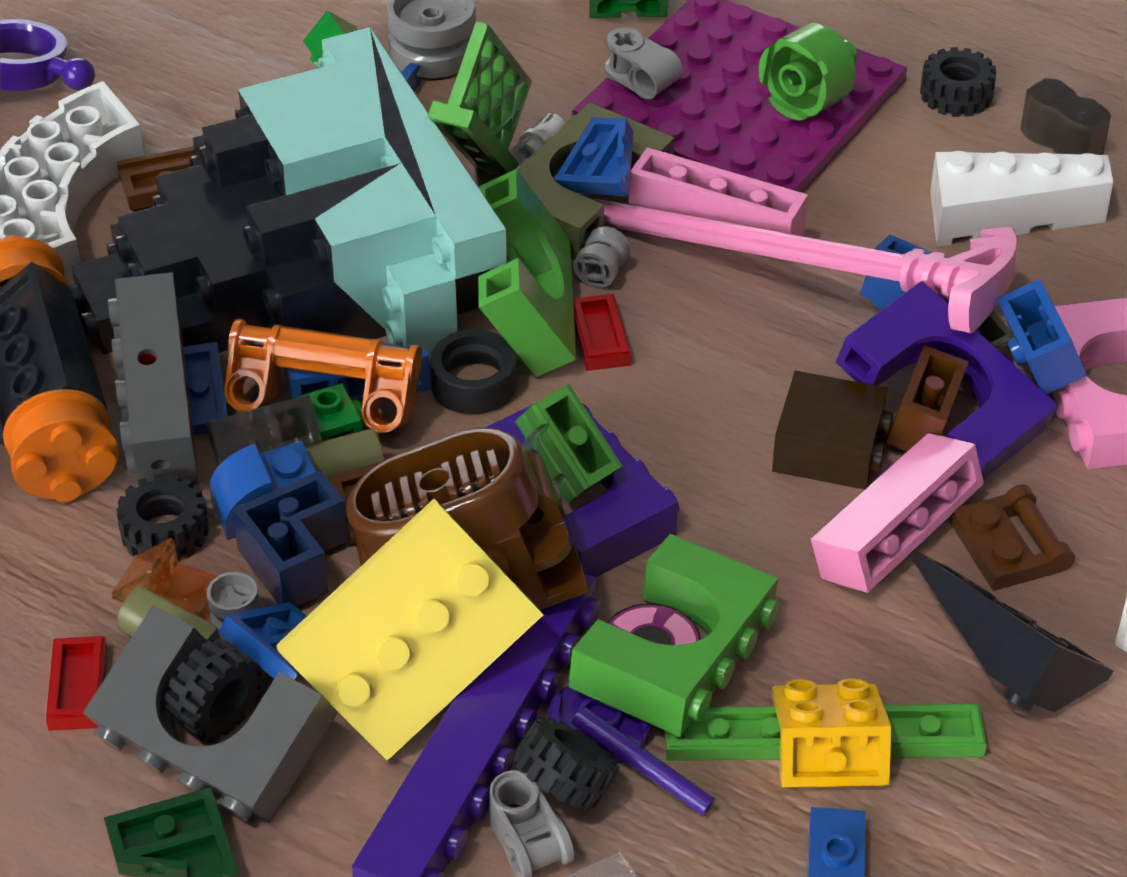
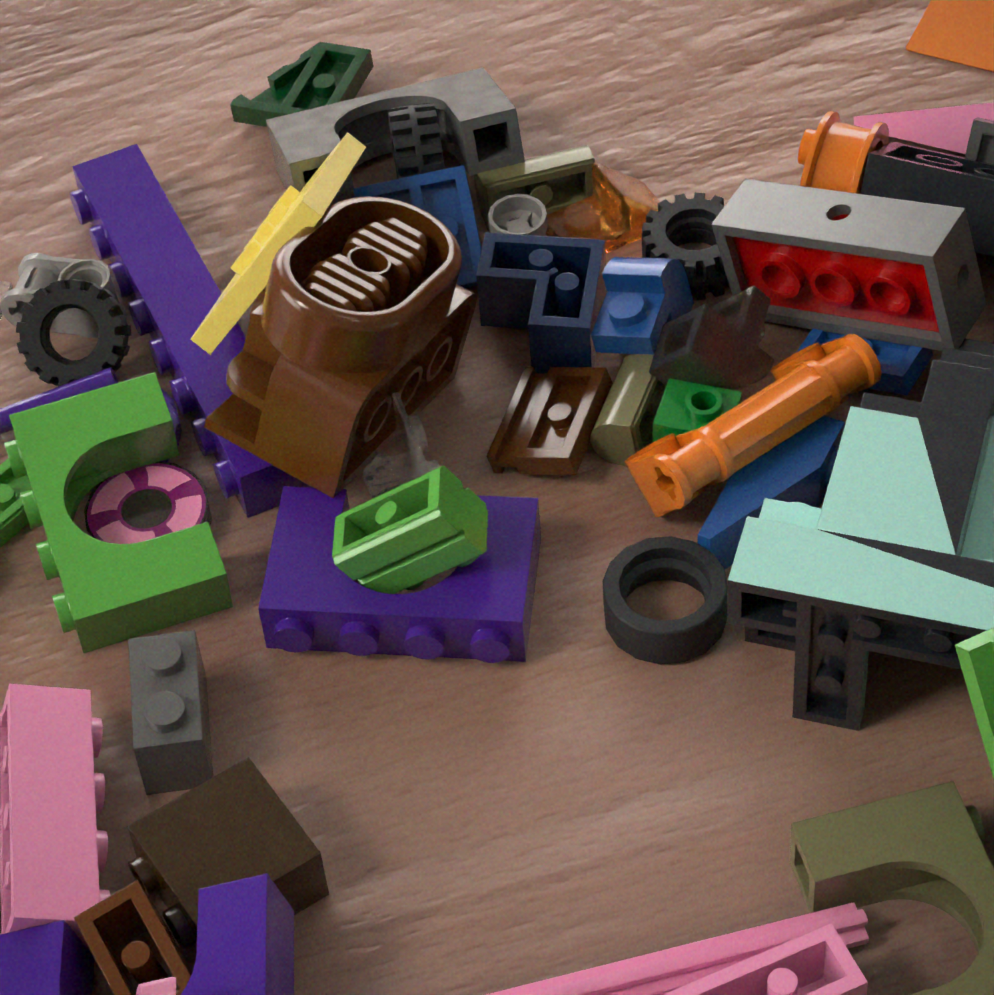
camera: 135 degrees right, 5 degrees up
(75, 676) = (559, 116): red tile -> none
(534, 291) = (653, 681): bright green arch -> none
(600, 159) = (893, 914): blue wing -> none
(600, 332) = (630, 780): red tile -> none
(601, 257) = (749, 856): light grey wheel -> none
(776, 513) = (170, 712): none -> dark grey brick

